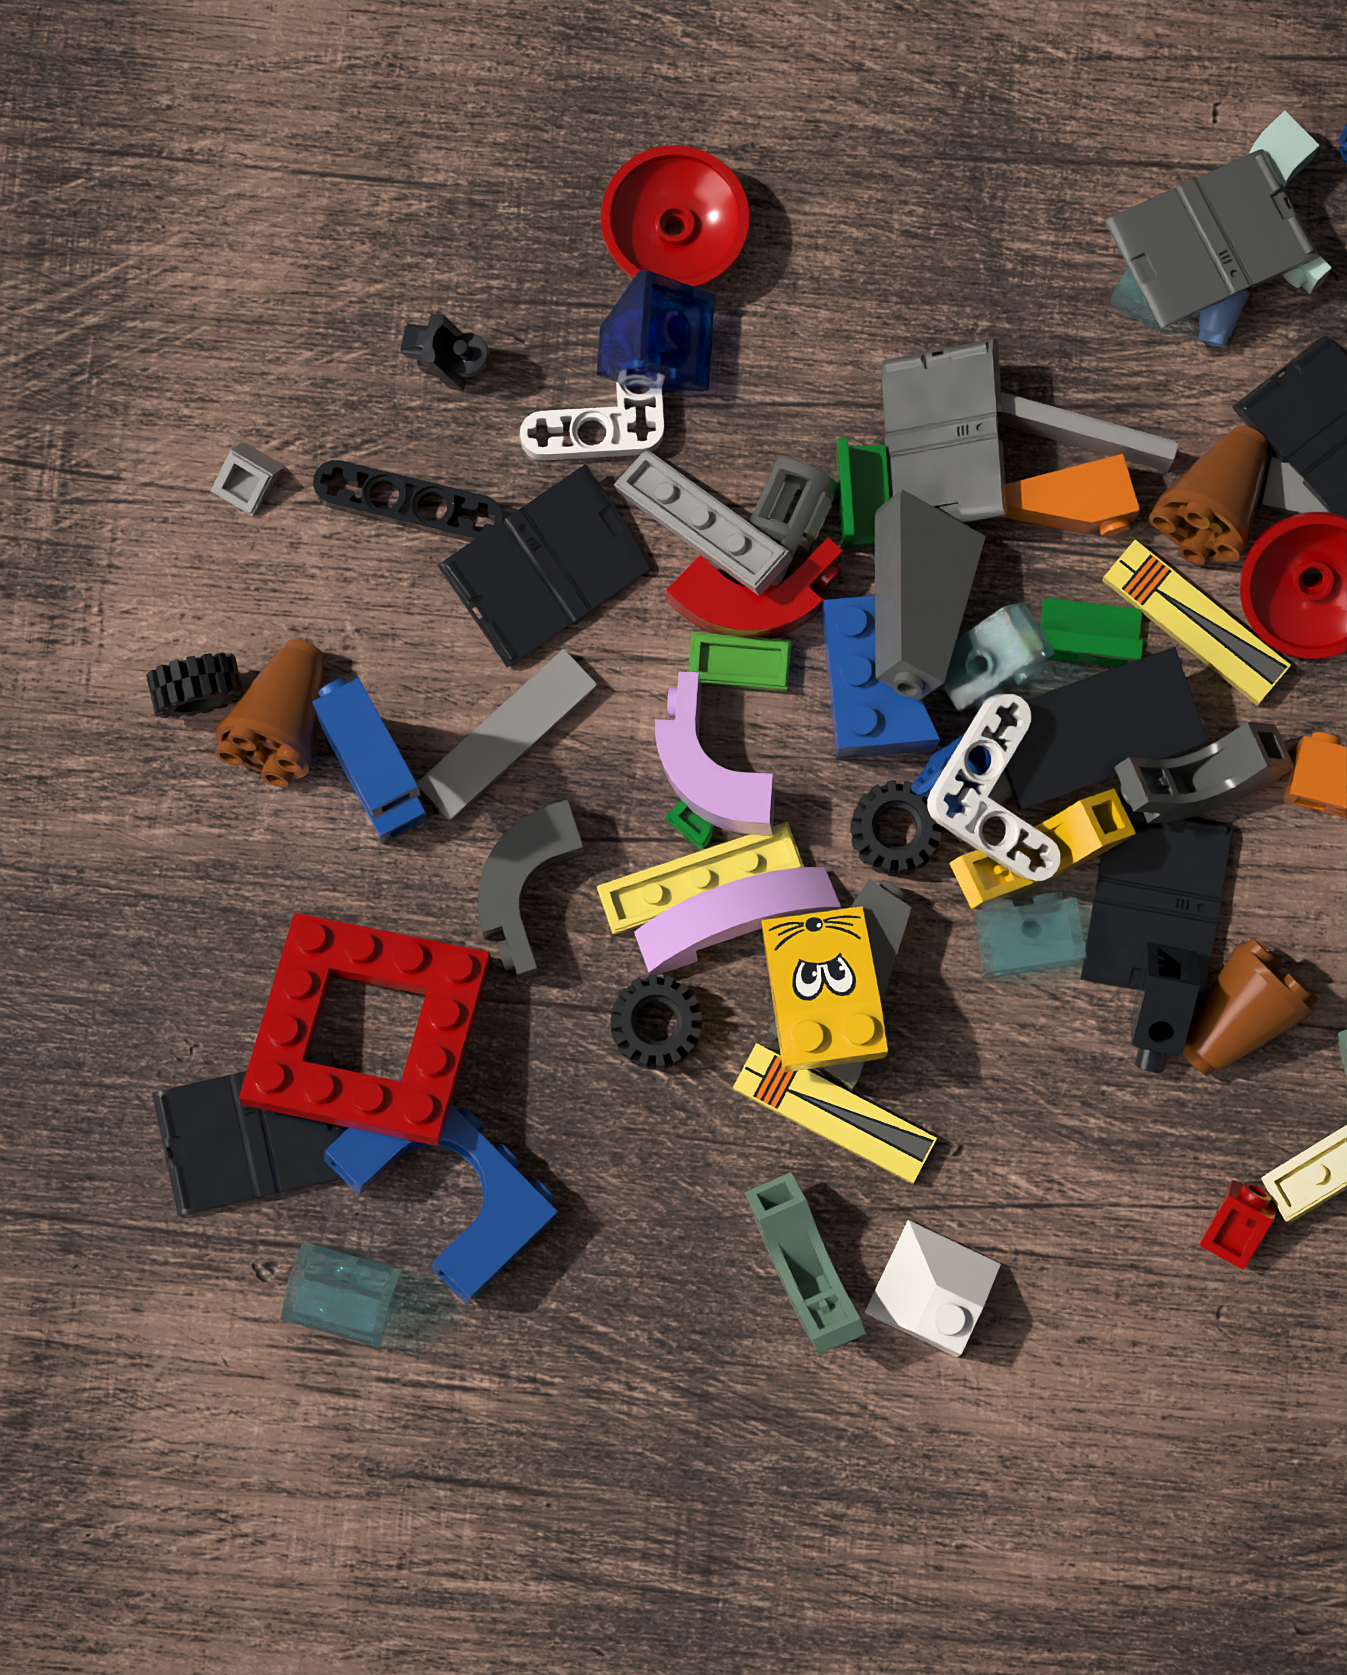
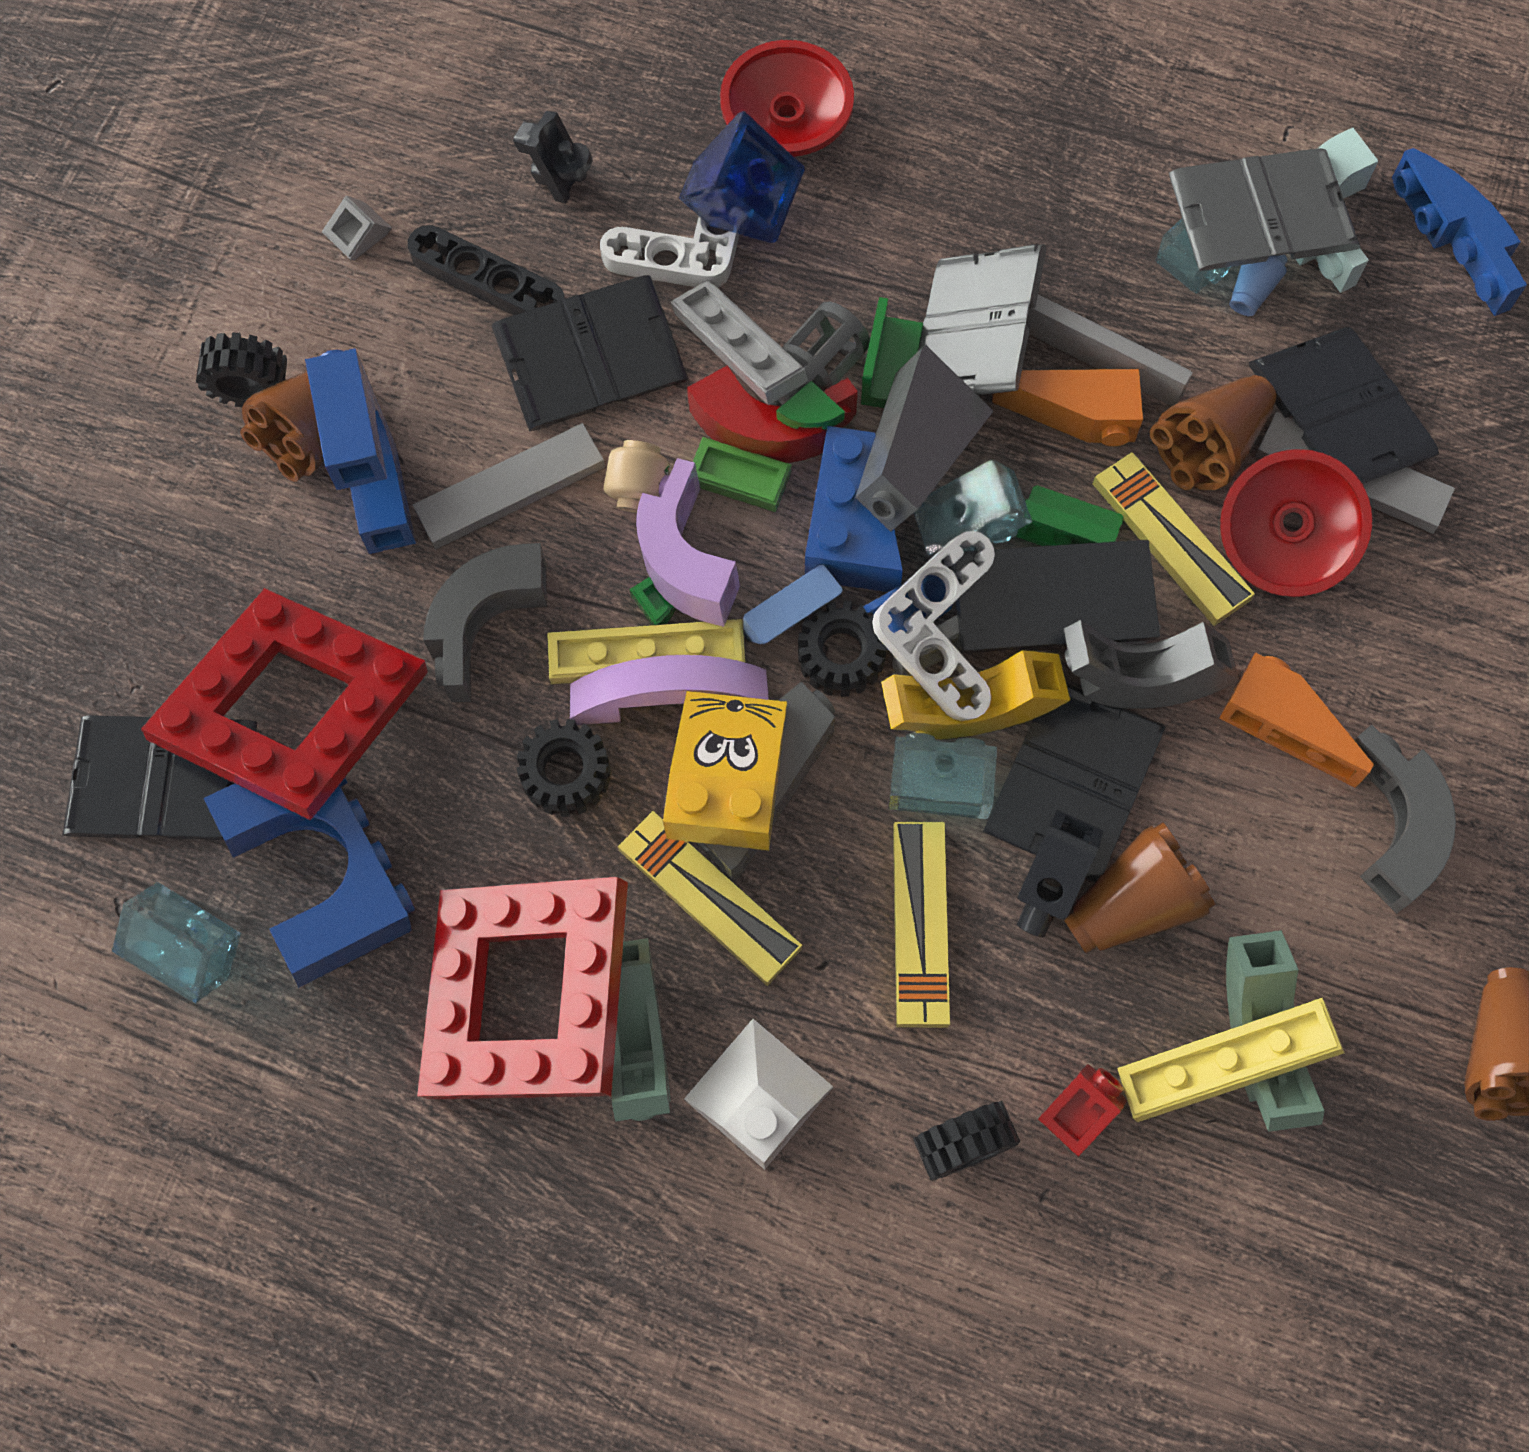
camera: 20 degrees right, 10 degrees down
(637, 695) = (634, 471): none -> tan head
(771, 1297) = (582, 1058): none -> plate
(802, 587) = (810, 409): none -> green tile
(837, 801) = (790, 605): none -> medium blue slope
(1043, 1086) = (921, 925): none -> light yellow tile
(1139, 1284) = (966, 1140): none -> black tyre

